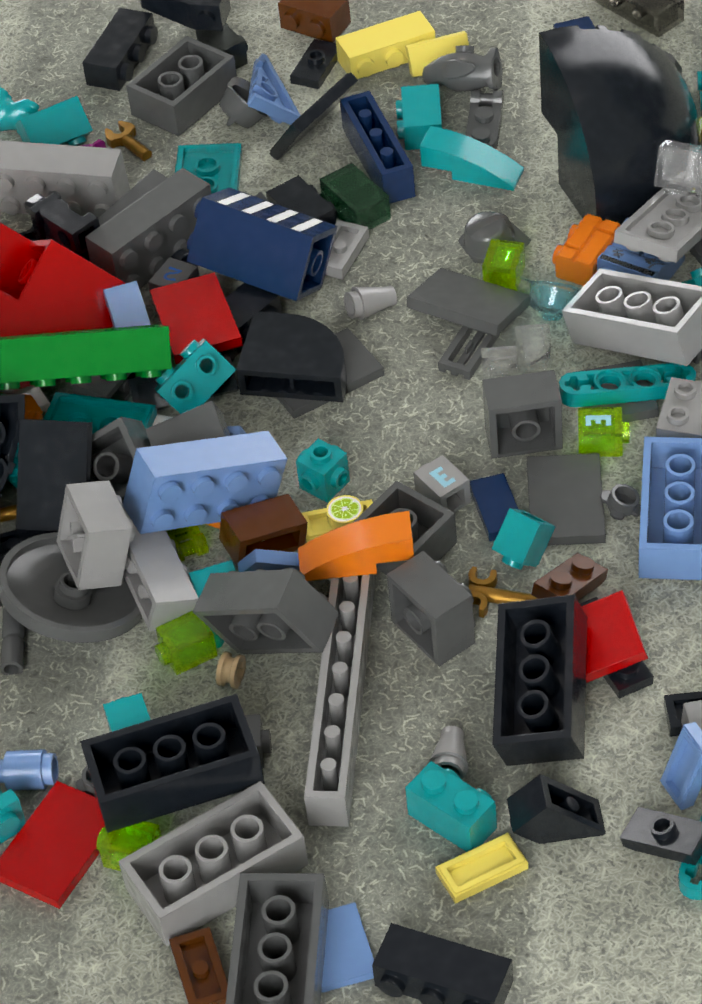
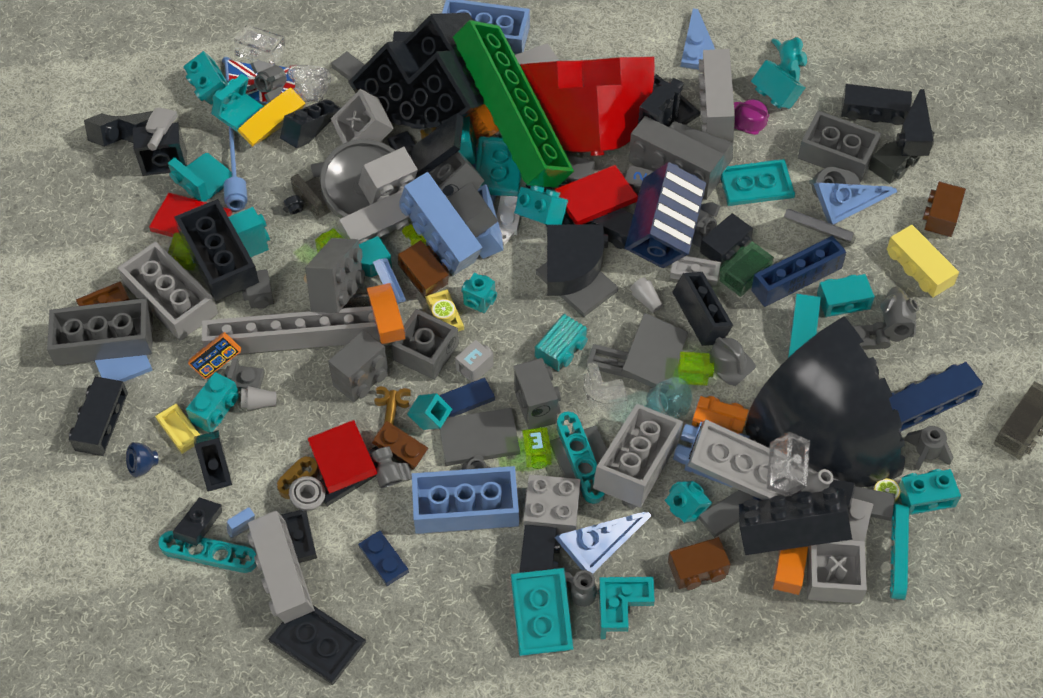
camera: 75 degrees right, 10 degrees up
(67, 670) = (311, 194): none -> clear smoke panel
(77, 694) = (293, 204): none -> black plate
(126, 139) = (786, 130): pearl gold bar -> none
(126, 305) = (581, 153): medium blue tile -> none
(315, 64) = (894, 222): black plate -> none
(367, 793) = (214, 355): none -> tile
(401, 770) = (244, 376): none -> dark grey bracket
(414, 242) = (702, 308): none -> black brick
(426, 51) = (922, 293): light yellow tile -> none
(430, 392) = (561, 342): none -> teal brick
(540, 681) = (299, 432): black brick -> none
(541, 915) = (140, 459): none -> dark blue brick
(595, 588) = (389, 472): none -> dark grey piece
(607, 708) = (296, 472): none -> pearl gold beam
(643, 689) = (306, 493): none -> light grey brick

